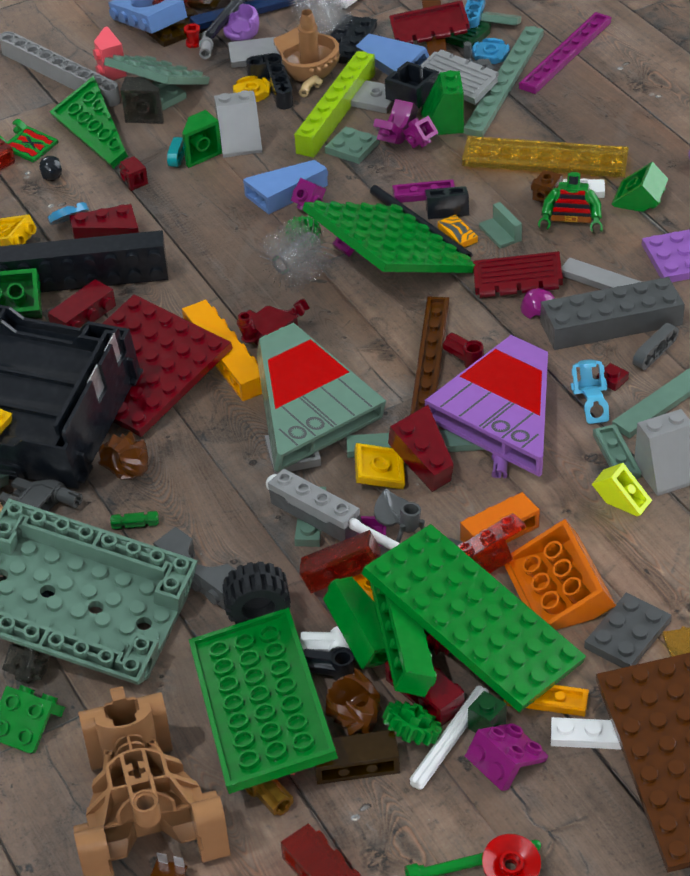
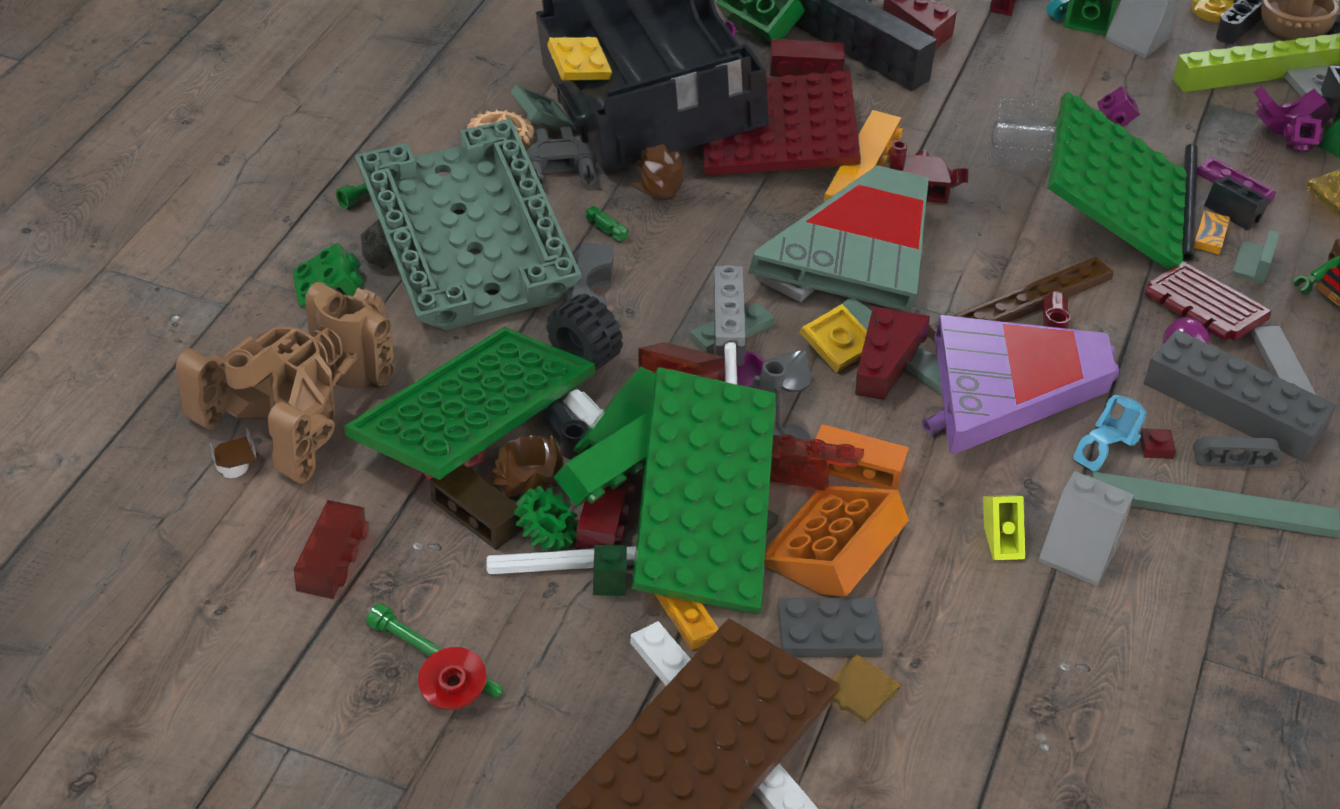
camera: 45 degrees right, 0 degrees up
(273, 796) = (384, 474): pearl gold piece -> none
(275, 188) = (1096, 81): medium blue slope -> none
(307, 85) = (1268, 35): tan arm -> none
(352, 145) = (1230, 104): sand green plate -> none
(501, 753) = (584, 605): magenta bracket -> none
(615, 449) = (1042, 510): sand green tile -> none

